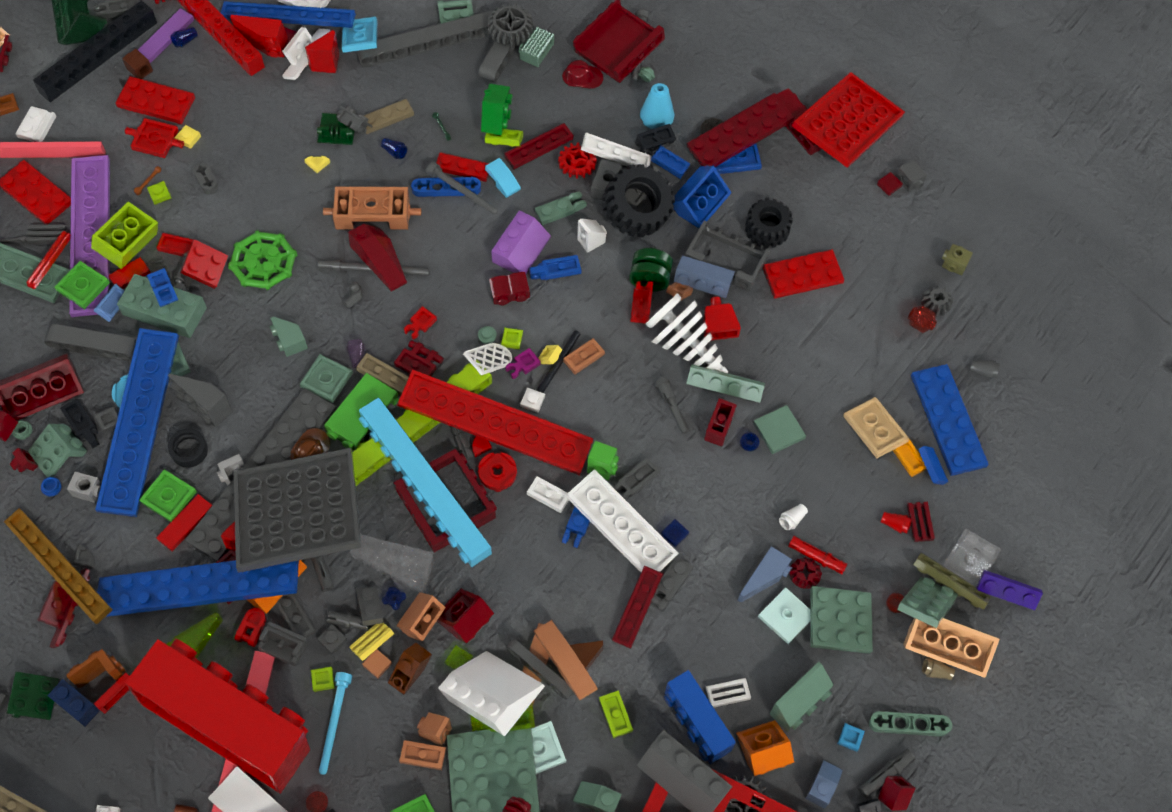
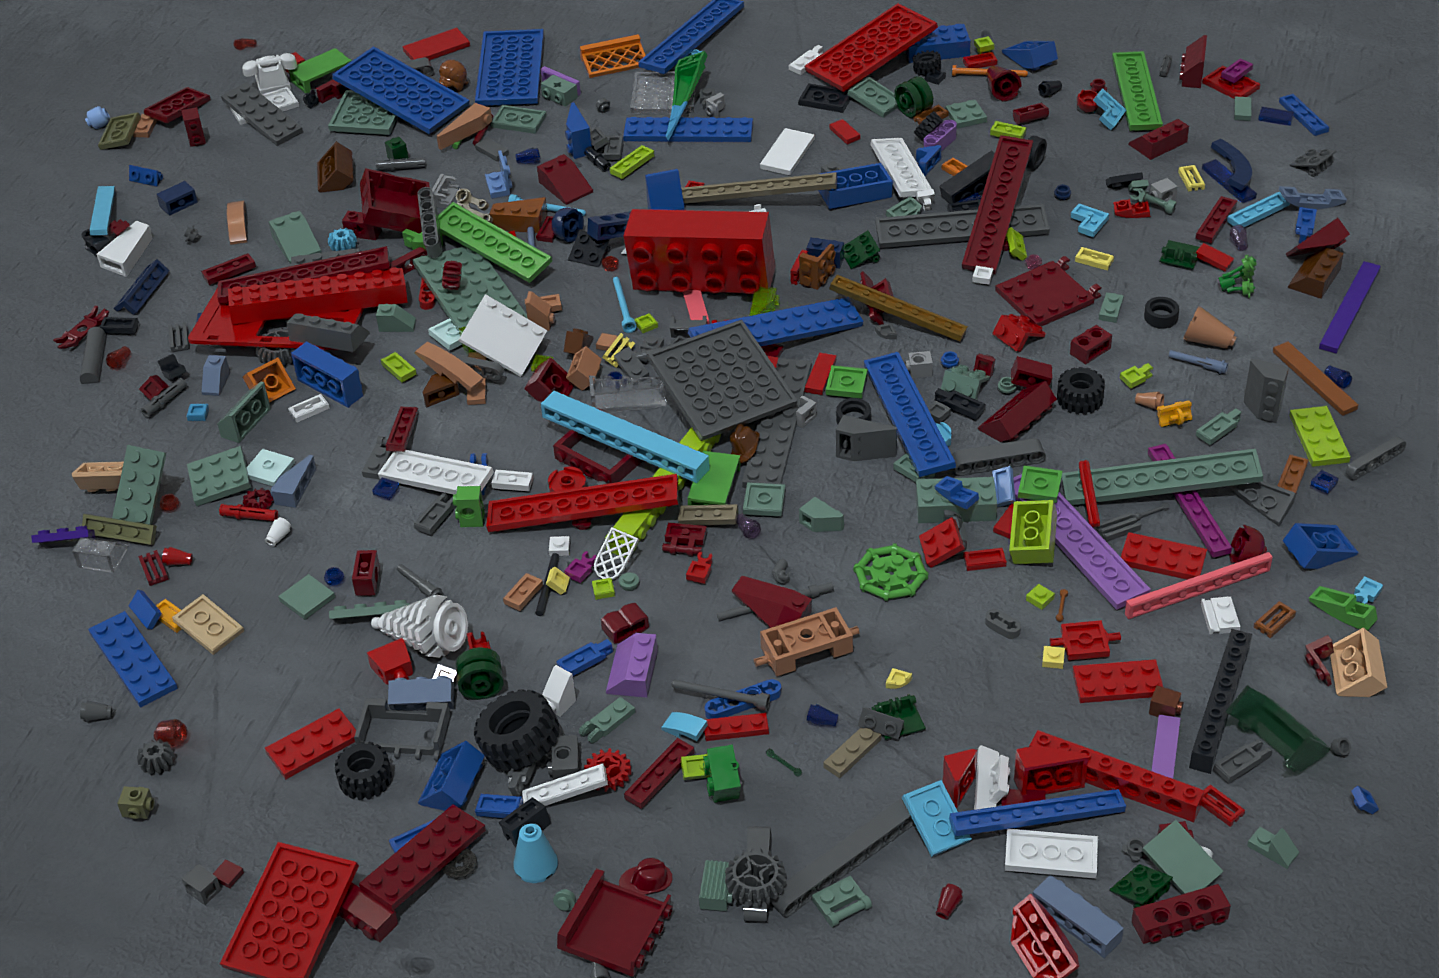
camera: 165 degrees right, 20 degrees down
(183, 37) = (1141, 751): clear blue cone -> none
(910, 727) = (173, 425): sand green beam -> none

